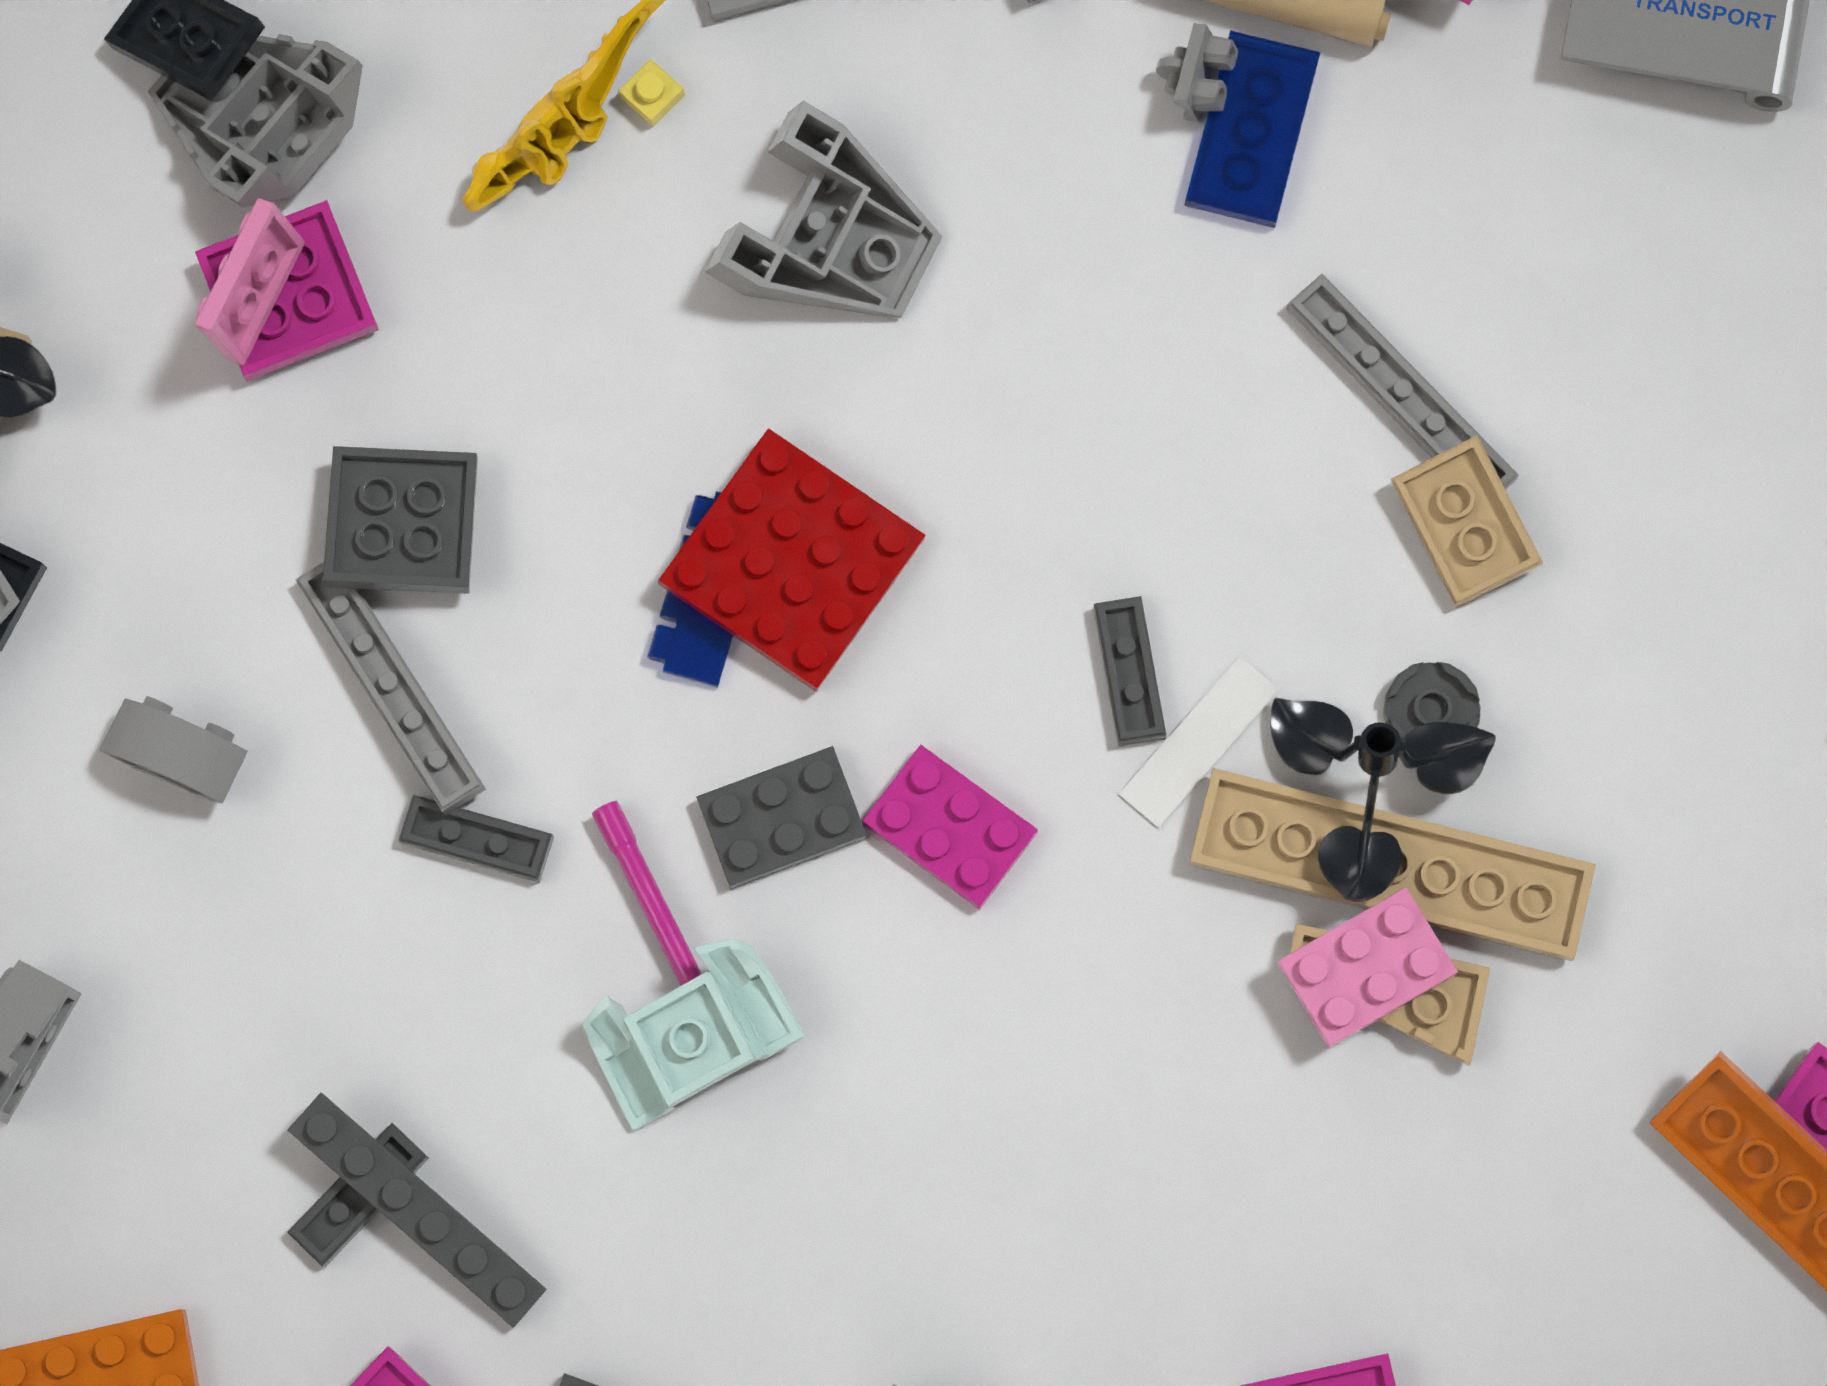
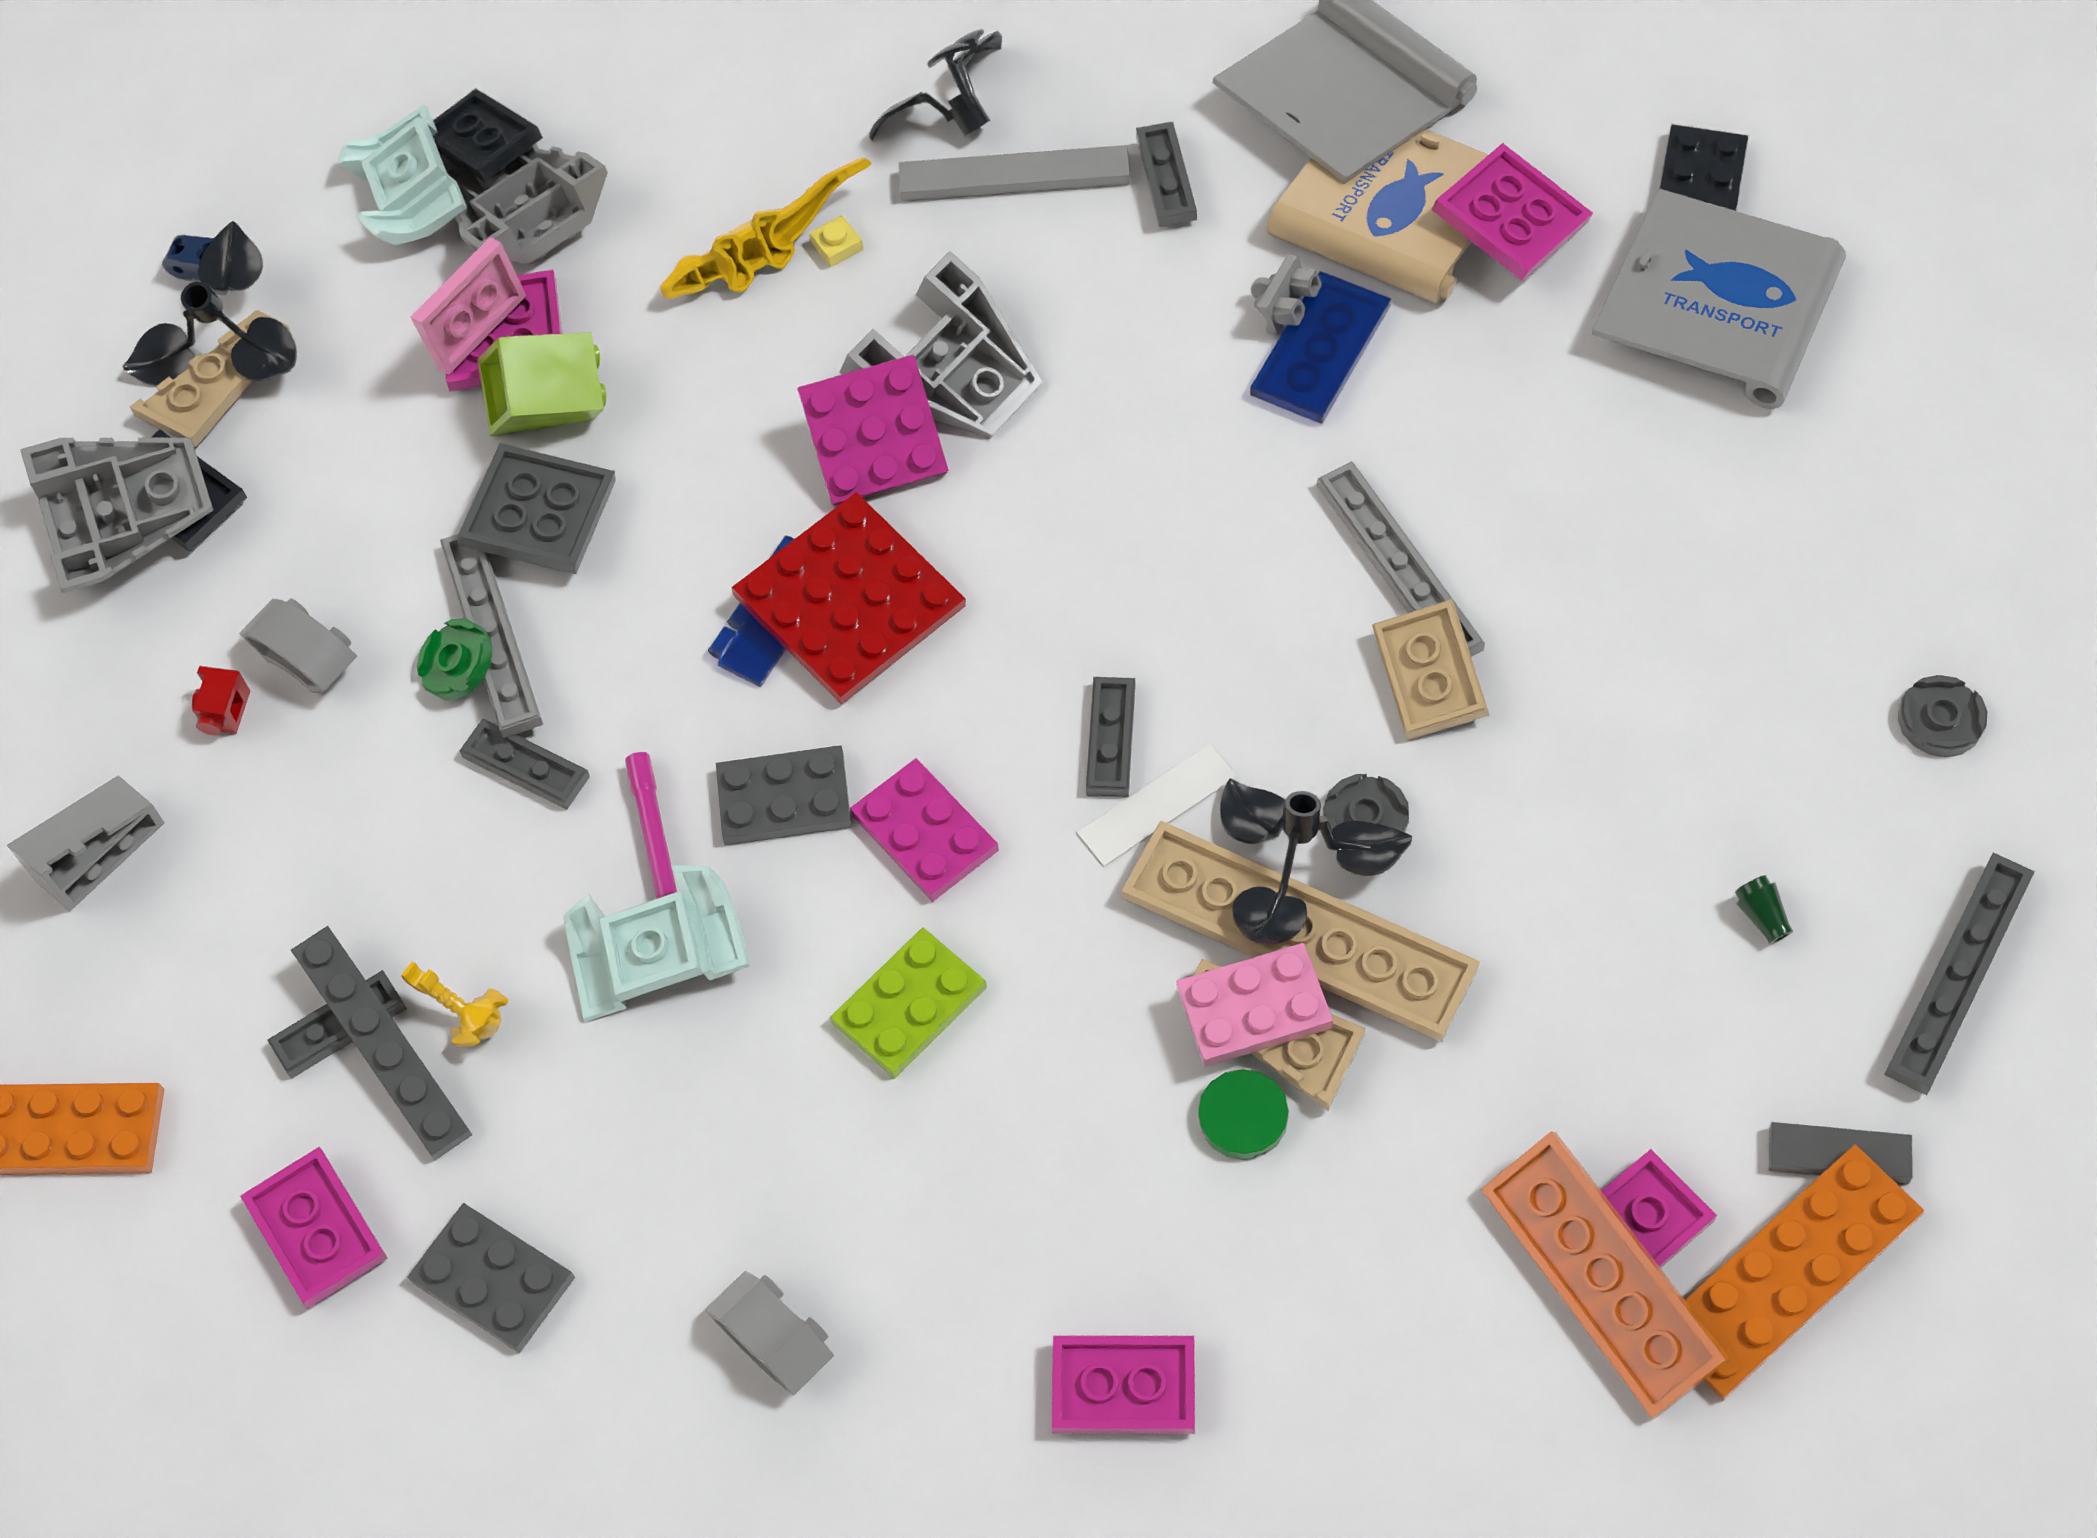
camera: 15 degrees right, 15 degrees down
(101, 837) = (219, 700): none -> red brick
(110, 110) = (405, 179): none -> light aqua piece
(360, 360) = (540, 382): none -> lime slope
(361, 730) = (454, 659): none -> green tile
(516, 1160) = (476, 1019): none -> yellow piece
(767, 345) = (872, 429): none -> dark pink plate
(986, 1036) = (908, 1002): none -> lime plate
(1379, 1089) = (1243, 1114): none -> green tile

